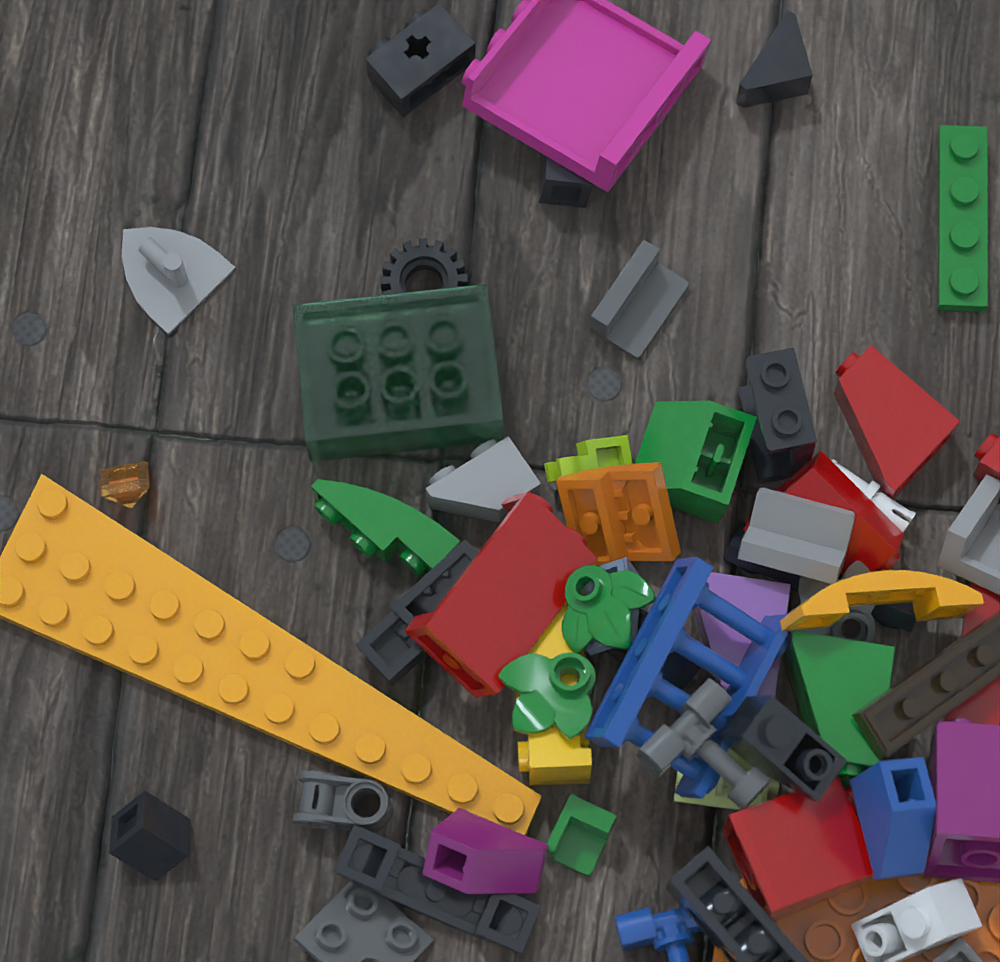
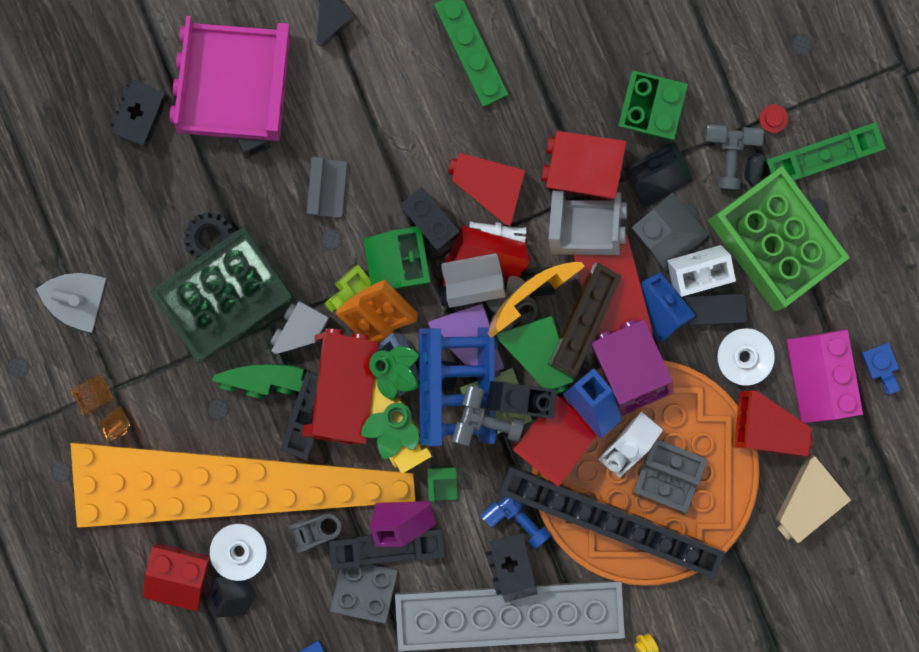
camera: 30 degrees left, 15 degrees up
(81, 761) = (176, 576): none -> red slope
(115, 421) = (91, 394): none -> clear orange slope
(197, 747) = (224, 557): none -> white dish

